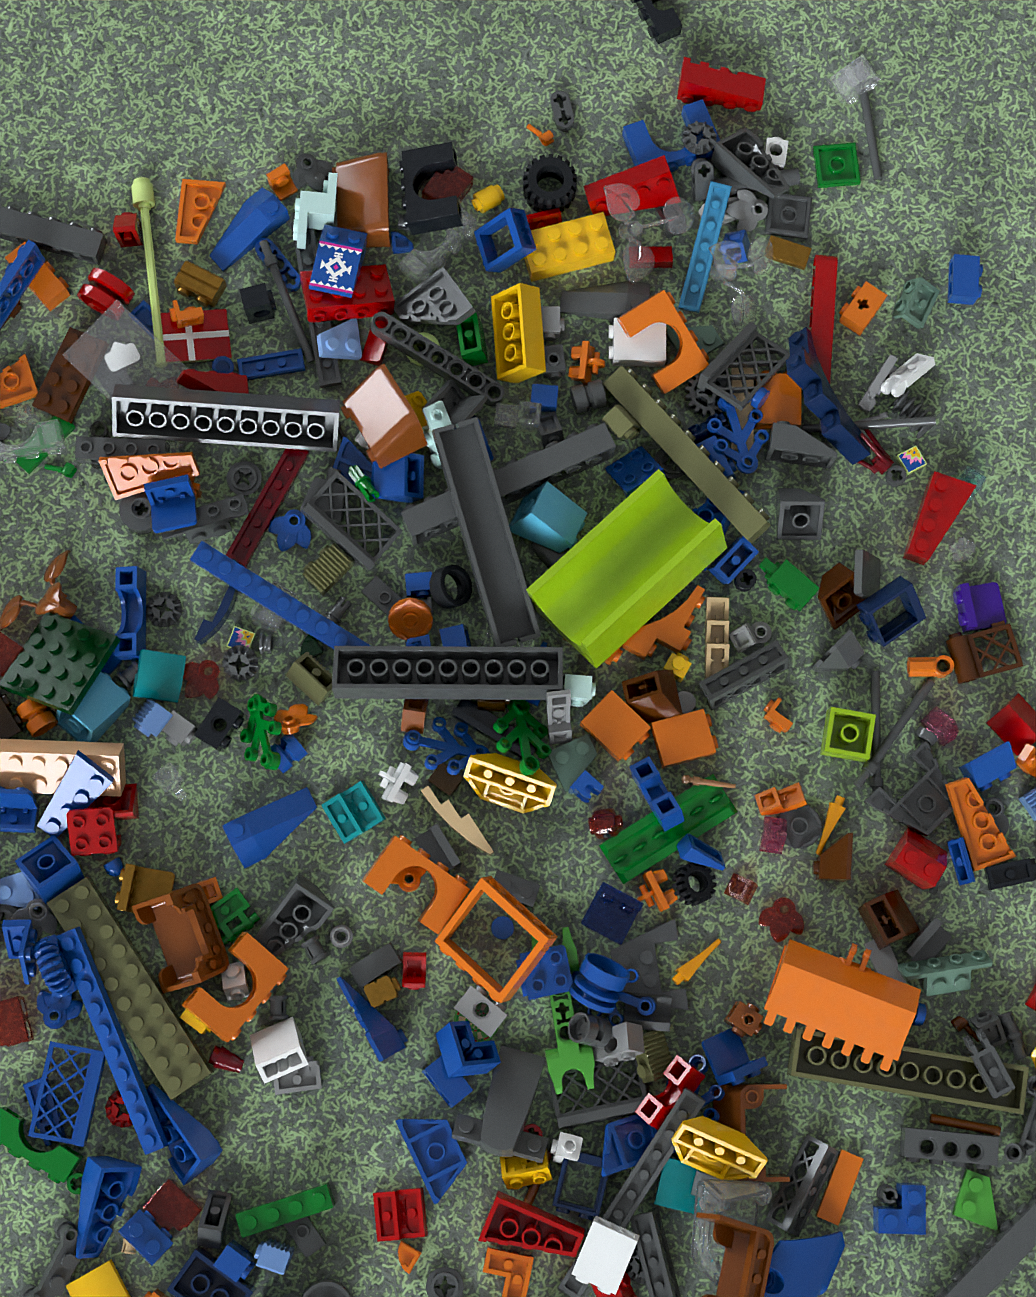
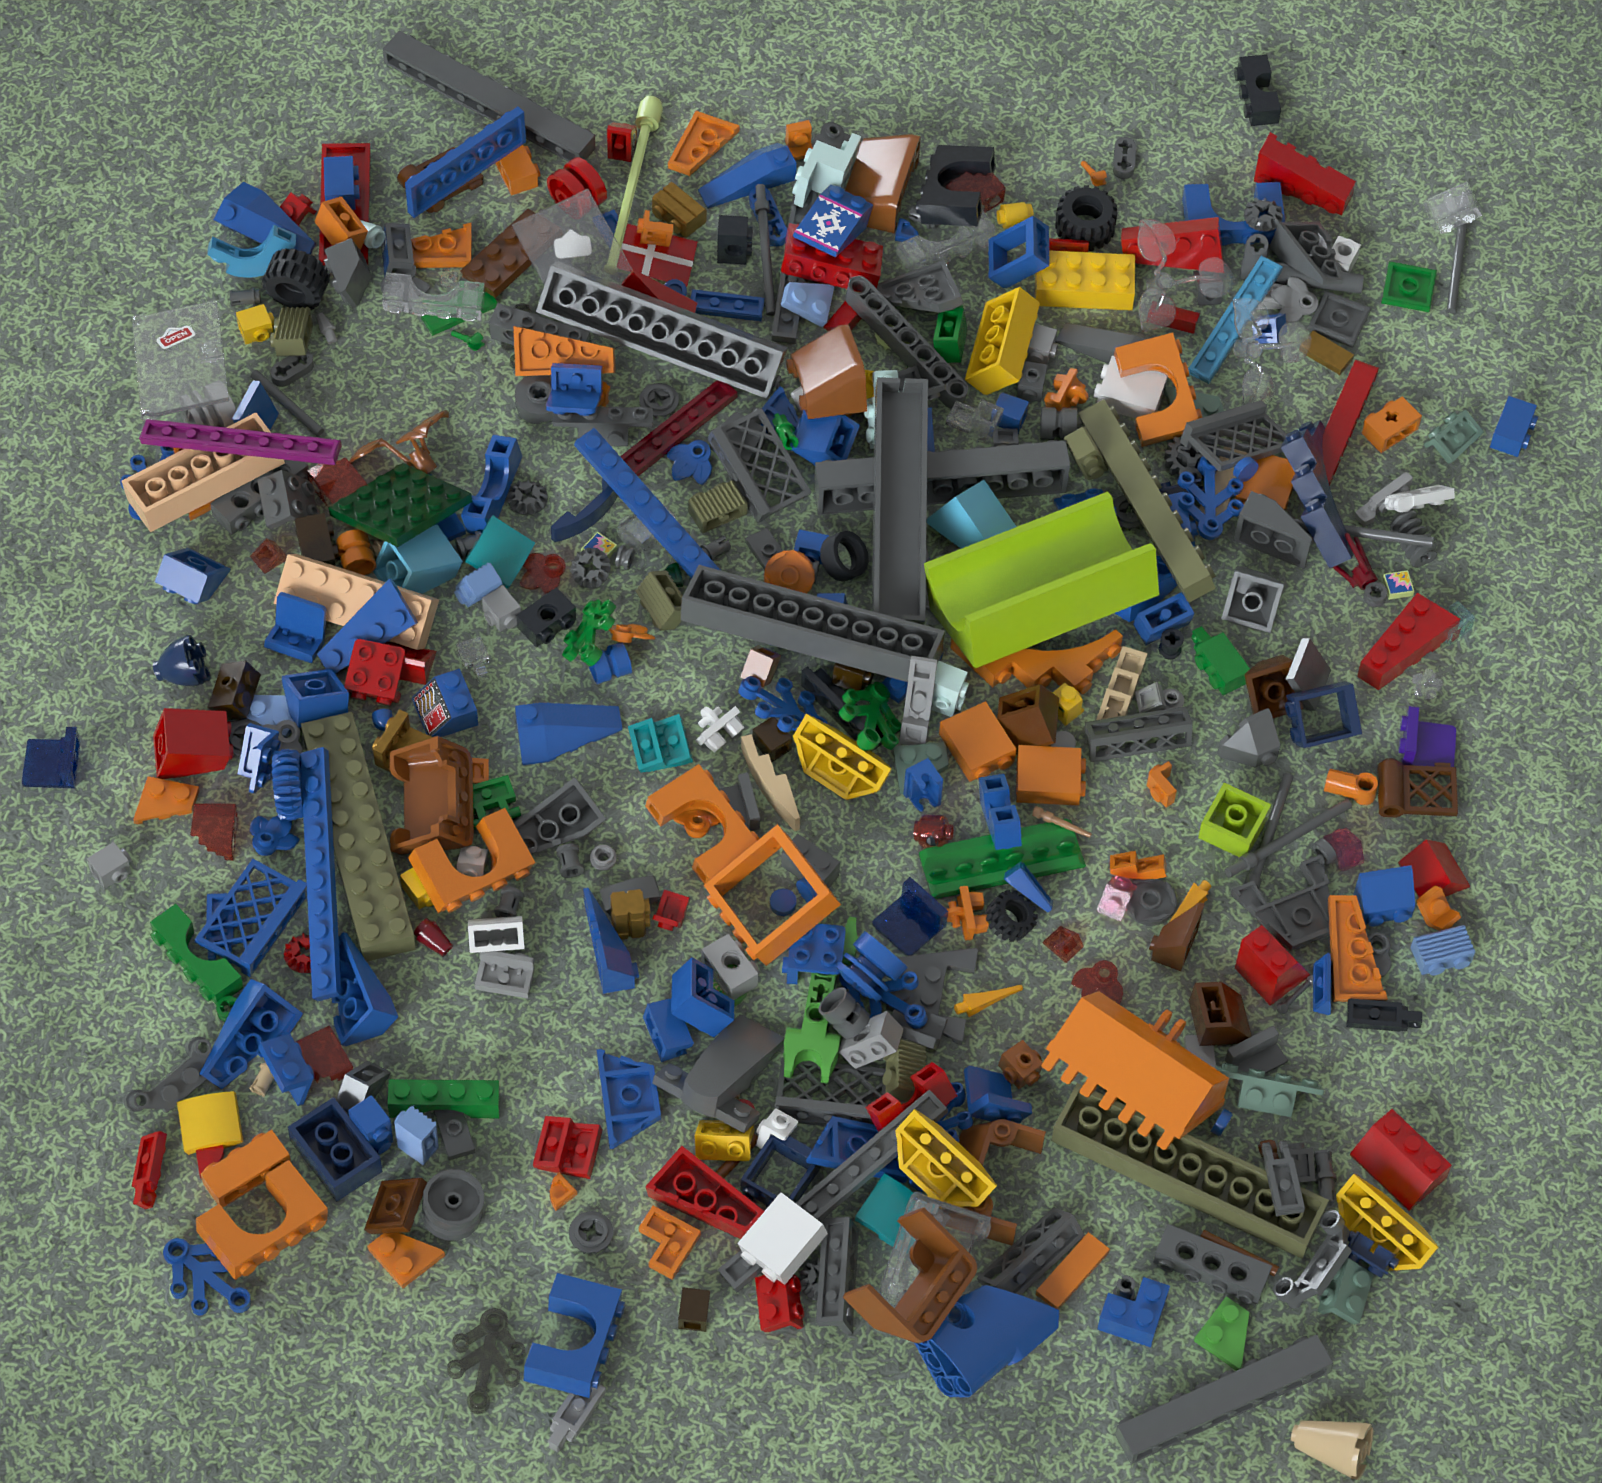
camera: 20 degrees right, 20 degrees down
(162, 837) = (446, 705): none -> blue slope

